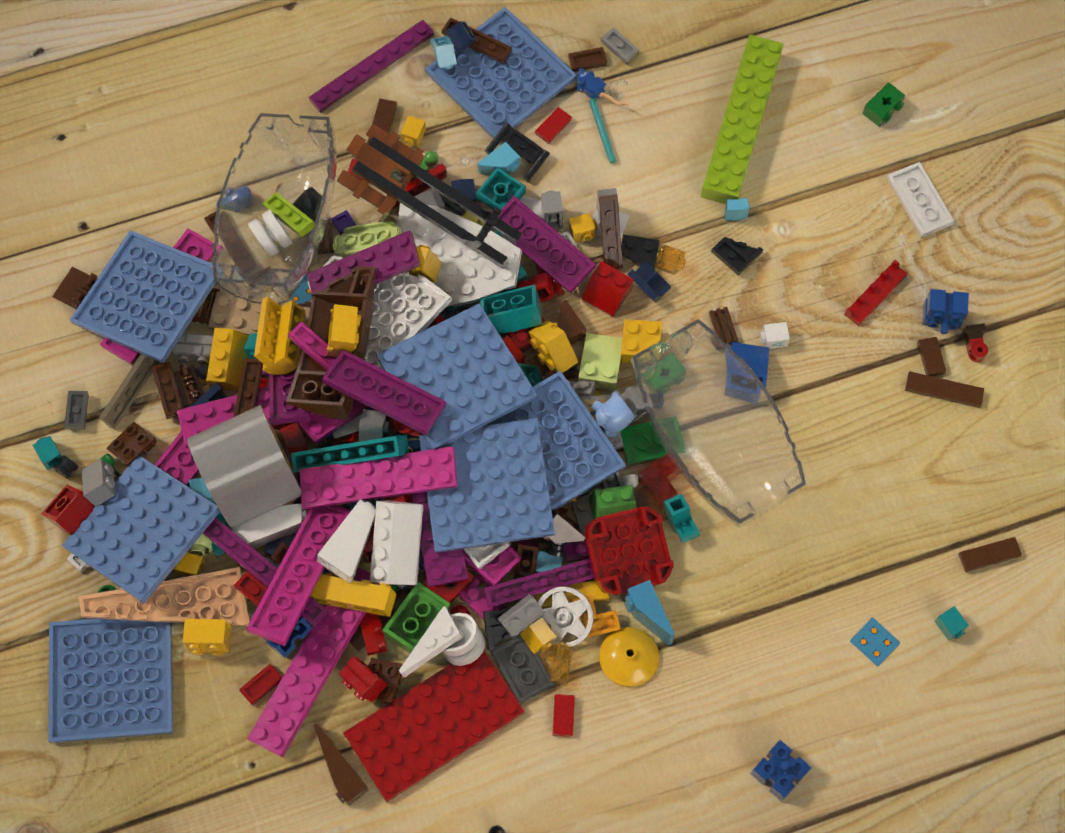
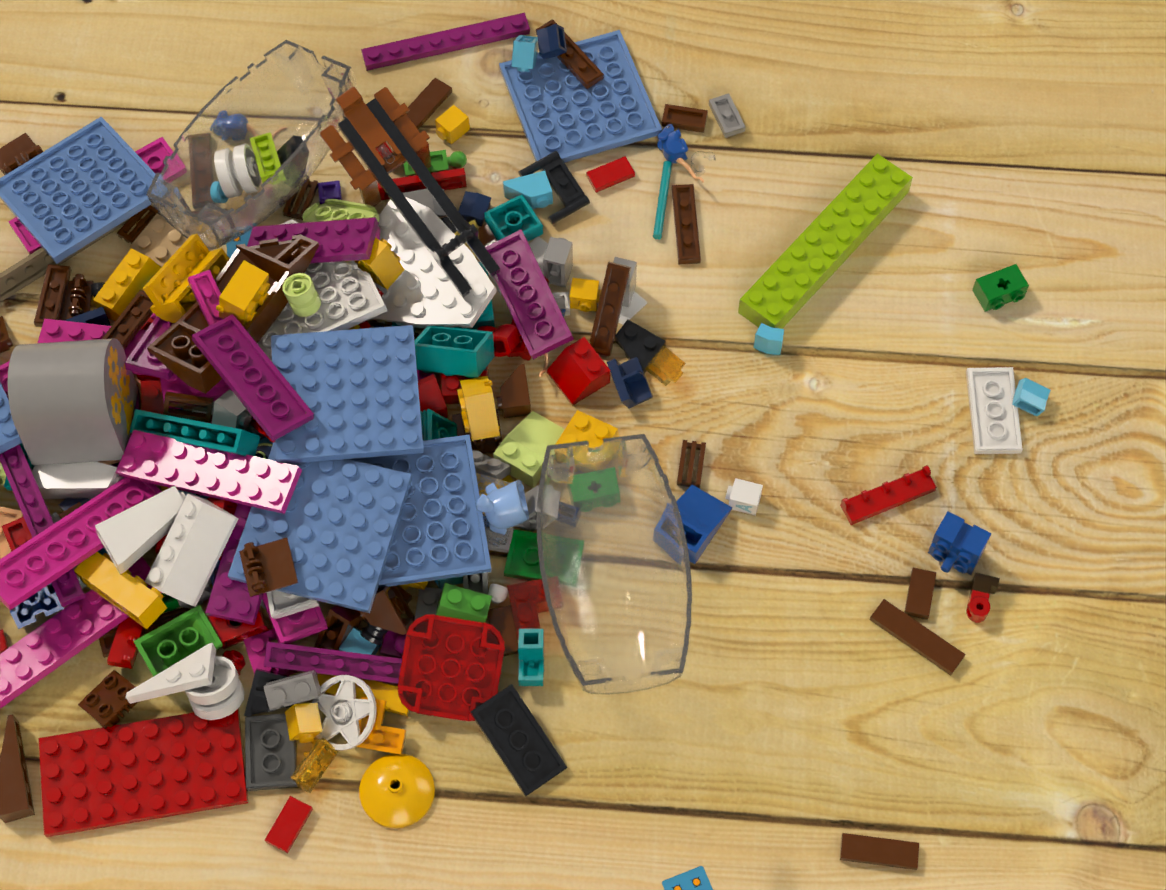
camera: 25 degrees right, 5 degrees down
(193, 348) = (98, 260): light grey brick -> none
(261, 255) = (217, 193): none -> medium azure tile
(332, 432) = (188, 403): none -> reddish brown tile
(362, 679) = (86, 687): red brick -> none
(382, 313) = (301, 295): none -> yellowish green wheel
(465, 531) = (268, 566): none -> reddish brown hinge
(629, 143) = (686, 224): none -> reddish brown tile
(648, 610) = (438, 731): dark azure slope -> none
(701, 582) = (518, 740): none -> black tile
(736, 254) = (745, 389): black wing -> none
(943, 179) = (1031, 396): none -> medium azure piece

